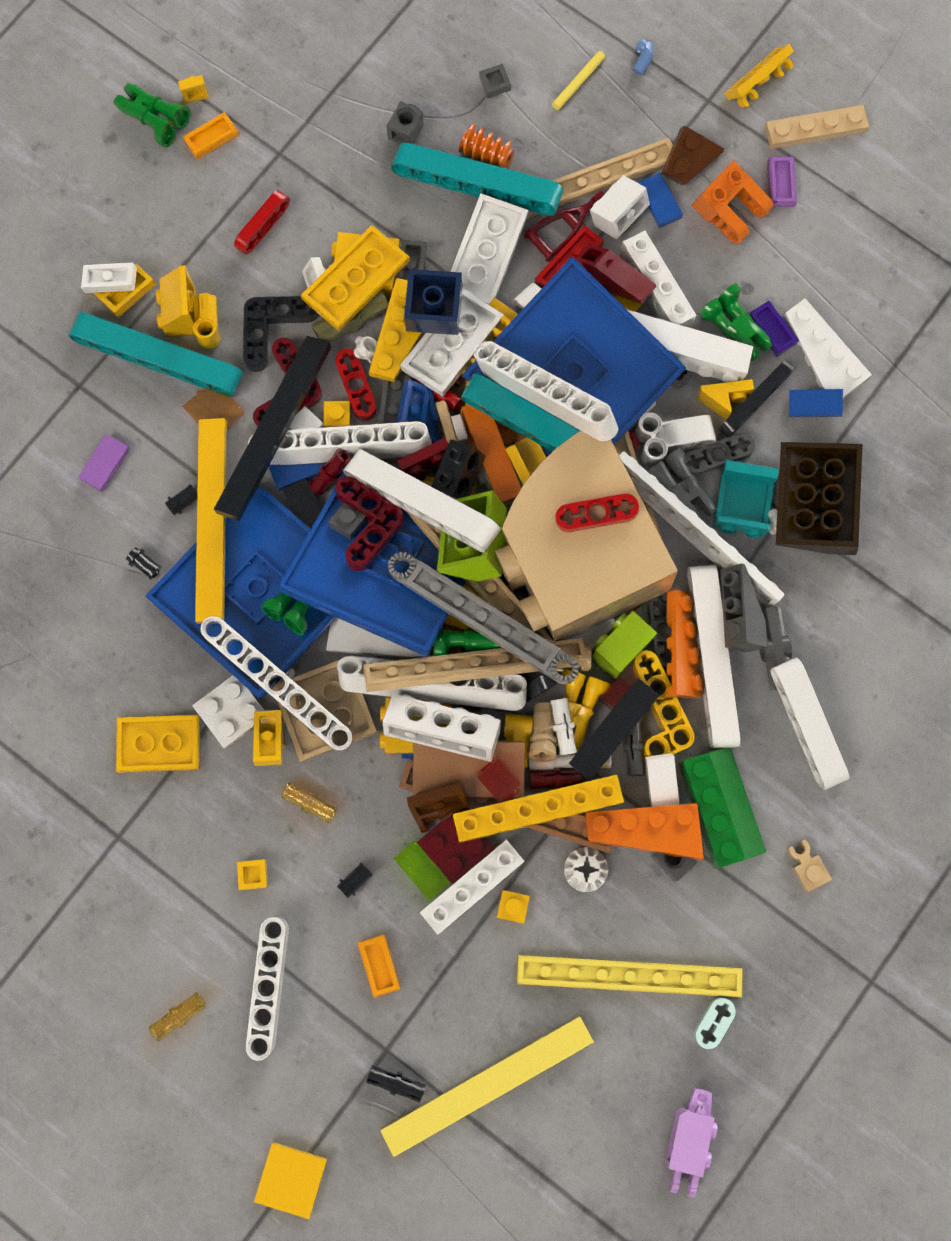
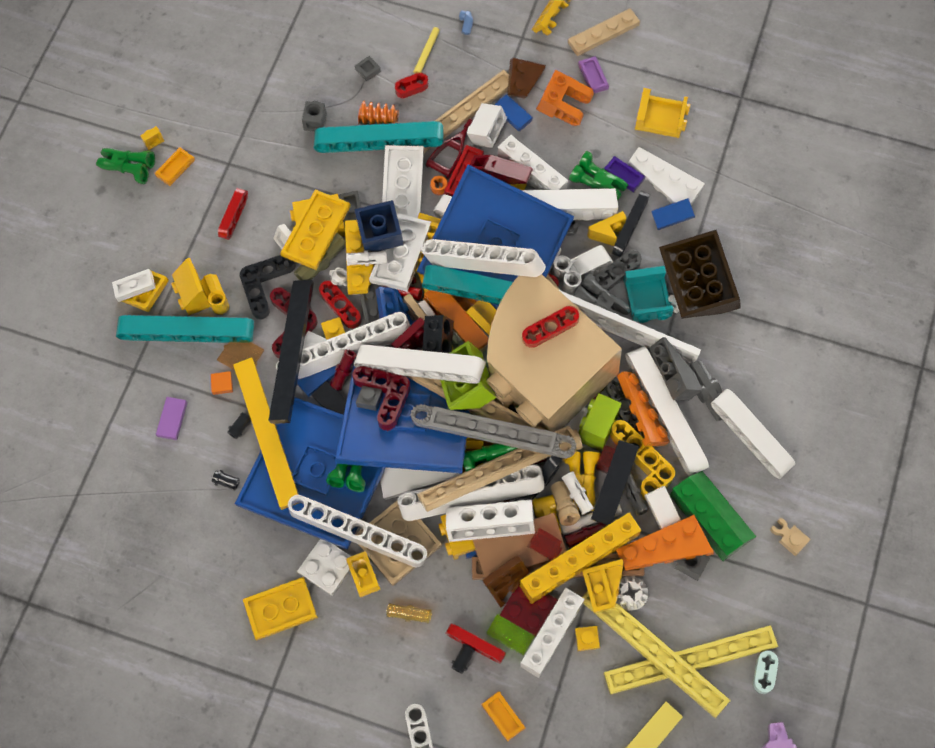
camera: 15 degrees left, 10 degrees down
(178, 438) = (221, 383): none -> orange tile
(252, 874) = (384, 680): yellow plate -> none
(375, 867) = (480, 645): none -> red beam
(405, 337) = (366, 258): none -> white pin
(531, 259) = (438, 179): none -> orange bush
(543, 121) = (411, 85): none -> red beam
(554, 851) = (604, 584): none -> yellow wing
(589, 952) = (663, 658): none -> light yellow tile
(850, 264) = (661, 115): none -> yellow panel

